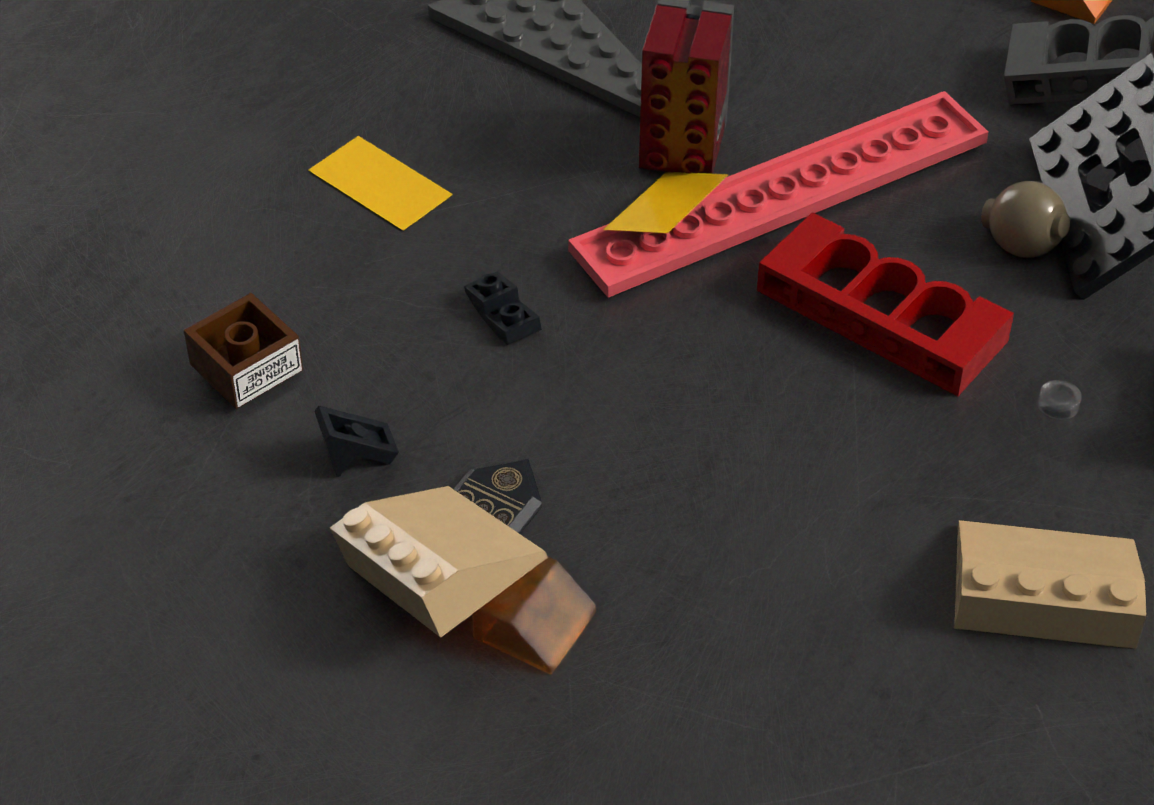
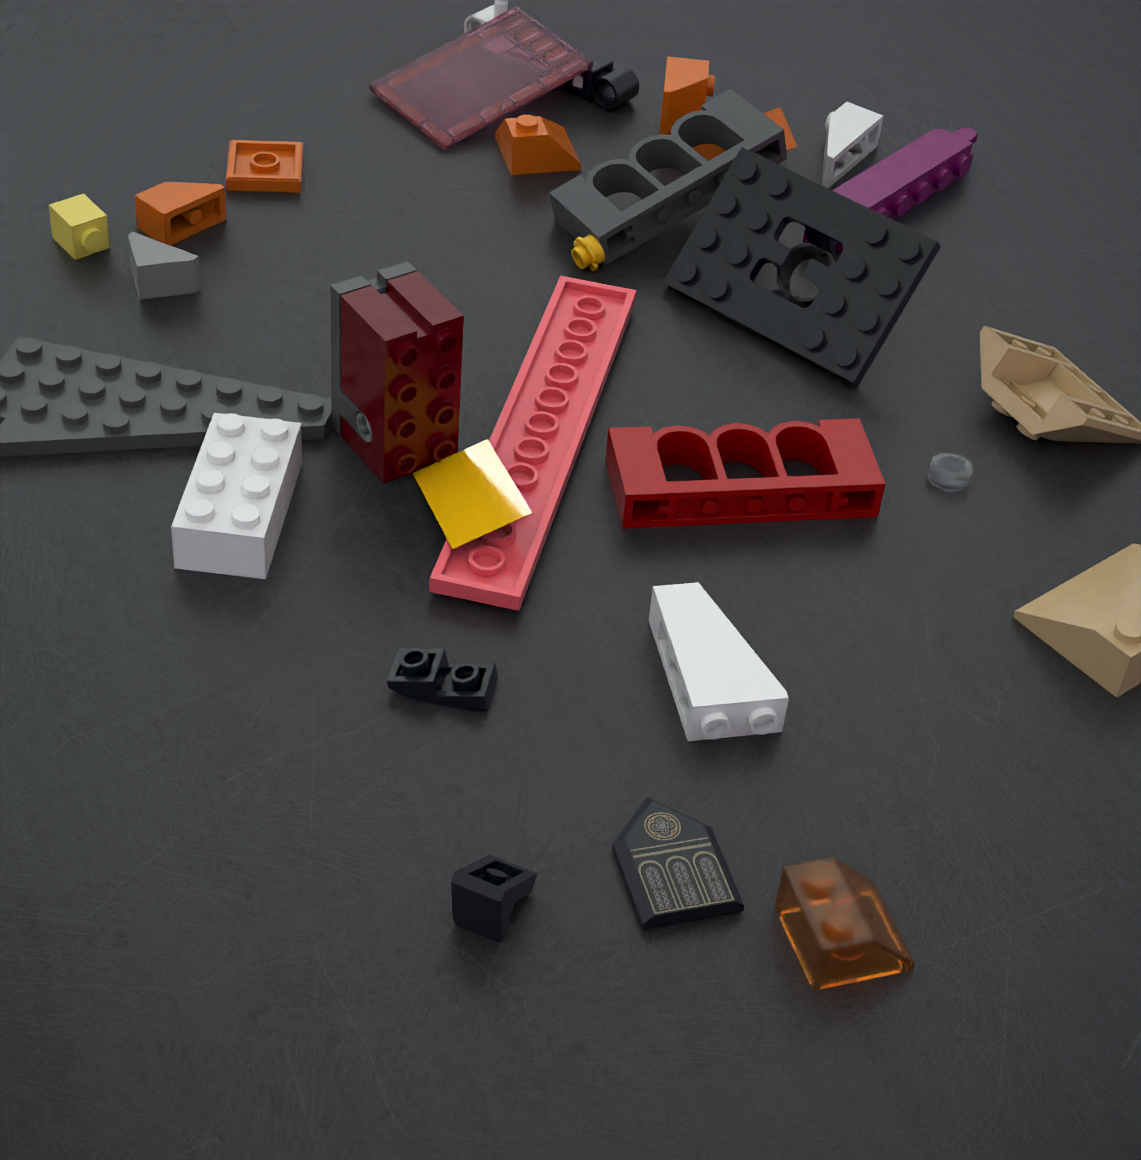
camera: 50 degrees left, 5 degrees down
(243, 350) = (273, 881): reddish brown brick -> none
(380, 182) = (157, 640): yellow sticker -> none
(434, 554) = (729, 934): tan slope -> none
(523, 119) = (237, 496): none -> white brick
(669, 408) = (711, 668): none -> white slope
(995, 87) = (587, 252): none -> yellow plate
(1026, 219) = (760, 342): dark tan brick -> none

